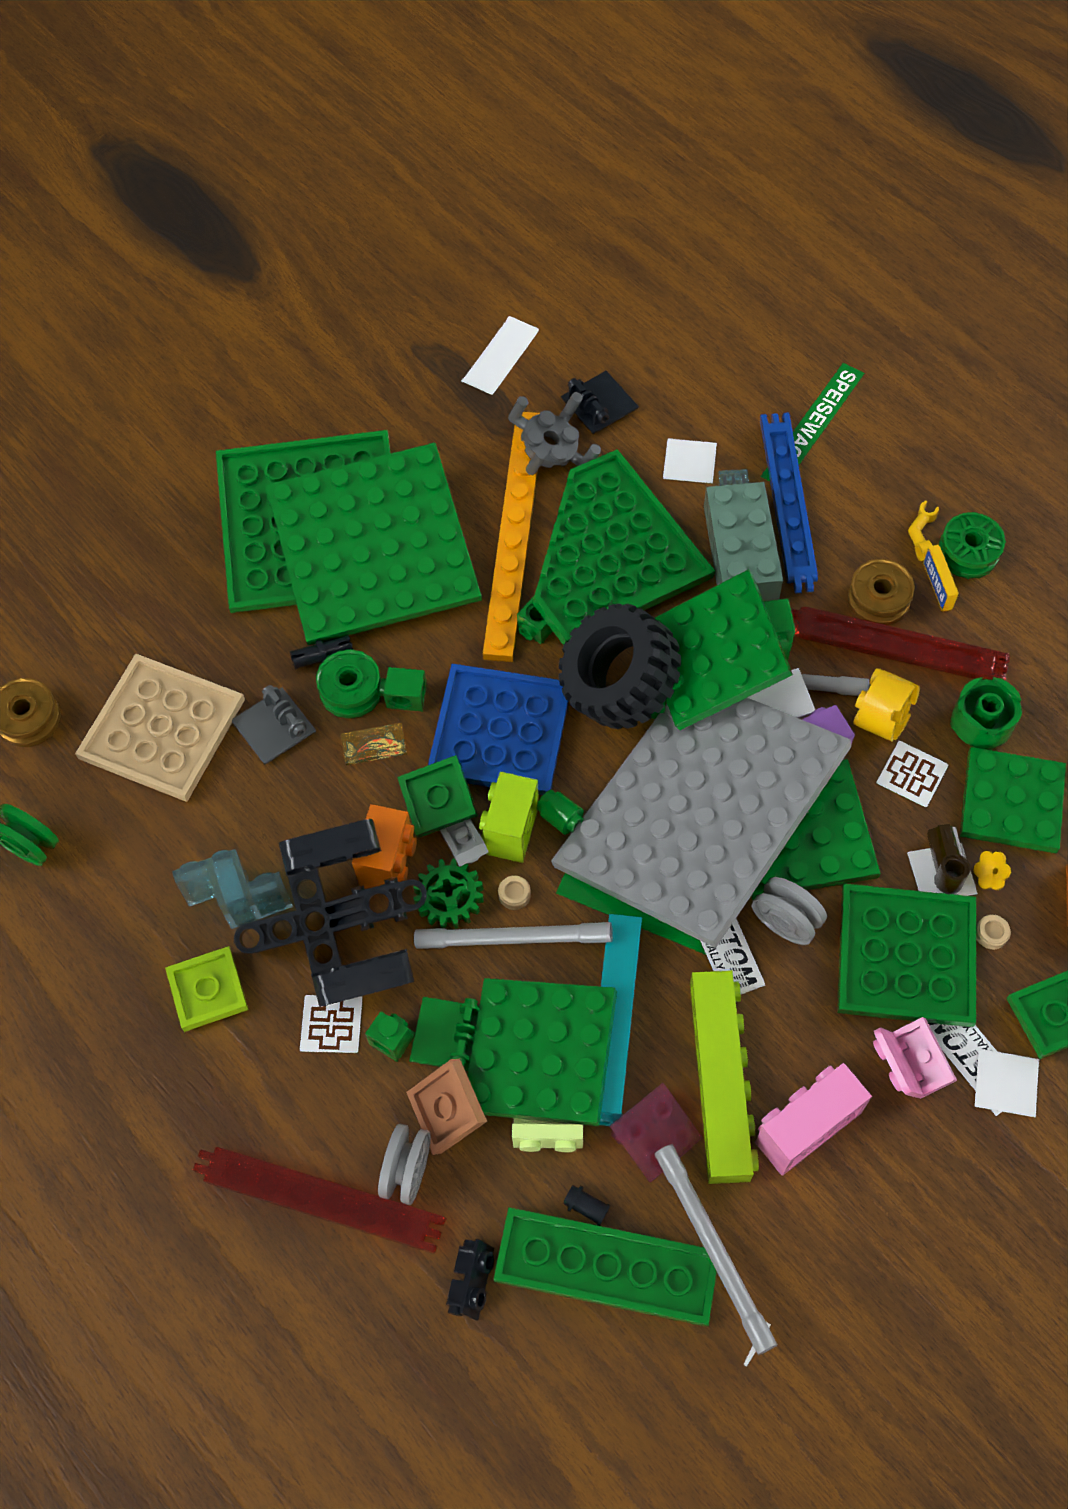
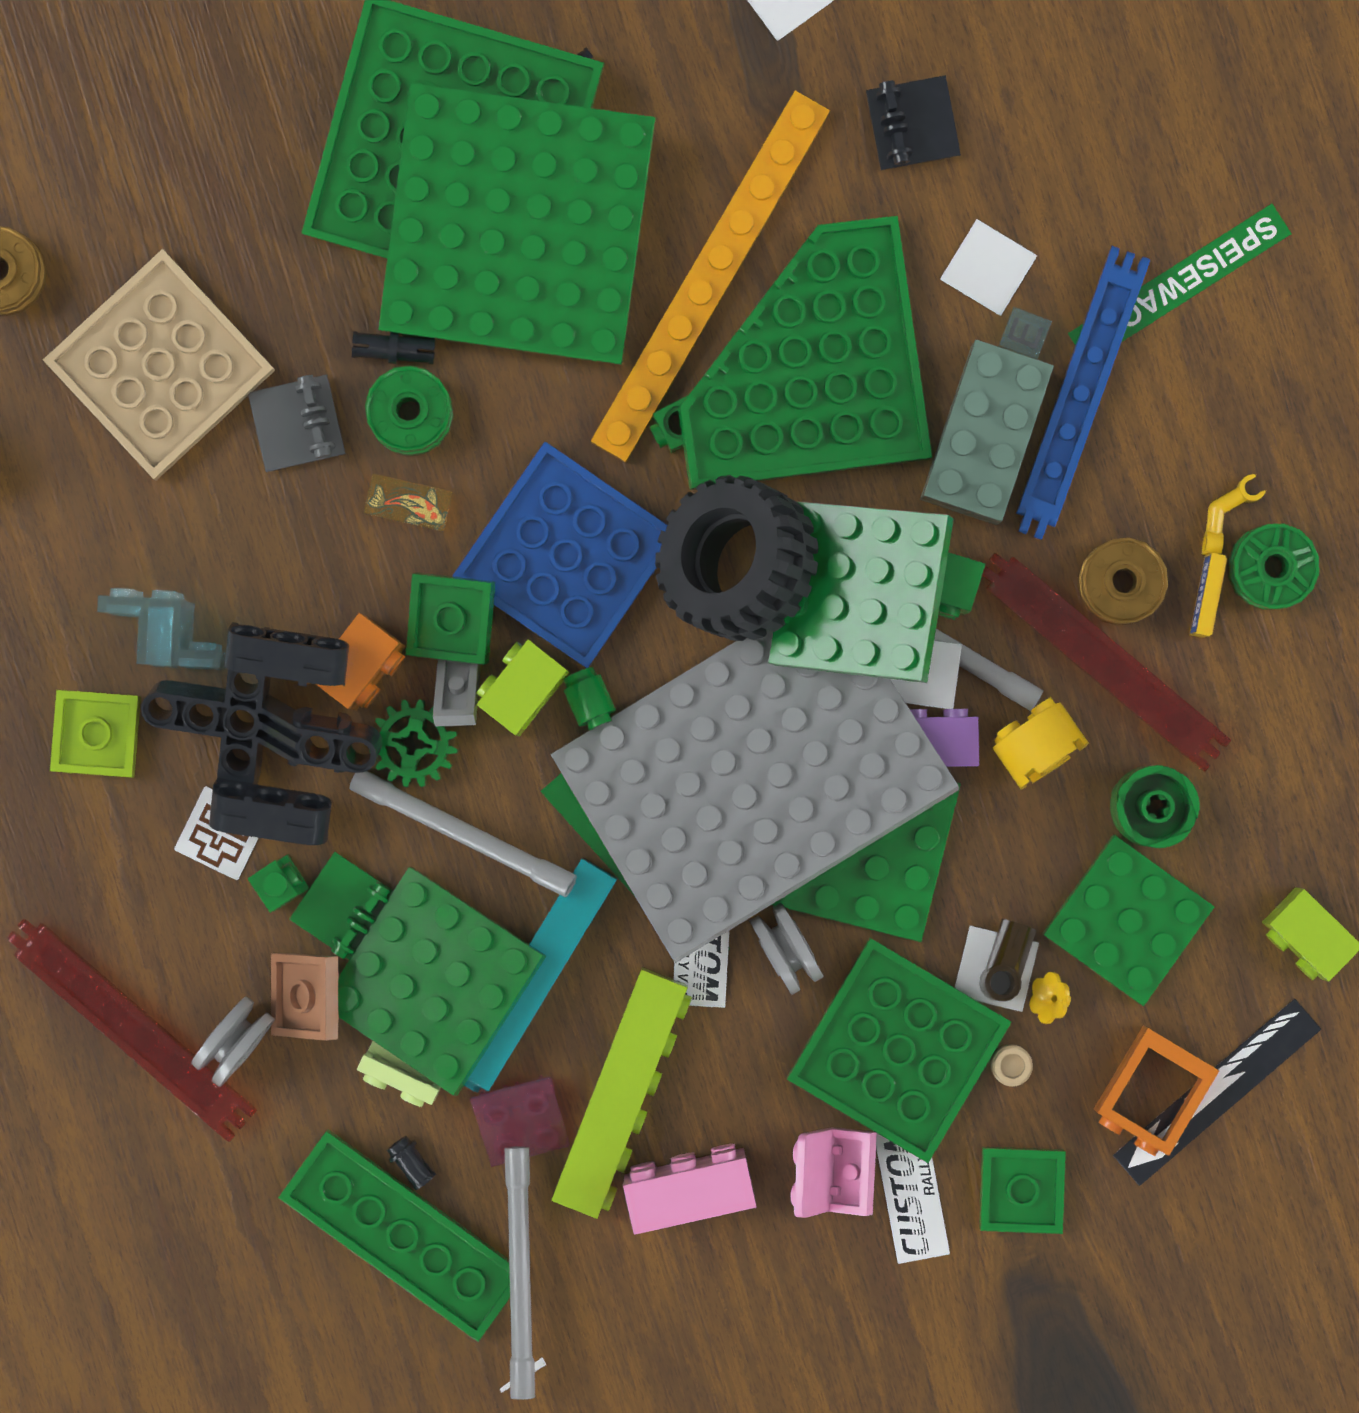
camera: 25 degrees right, 25 degrees up
(404, 689) = (472, 449): green brick -> none
(468, 1297) = (246, 1200): black hinge -> none
(514, 892) = (492, 771): tan tile -> none
(555, 427) = (838, 162): dark grey plate -> none
(912, 774) = (1031, 832): white sticker -> none
(1007, 1082) = (929, 1235): white sticker -> none

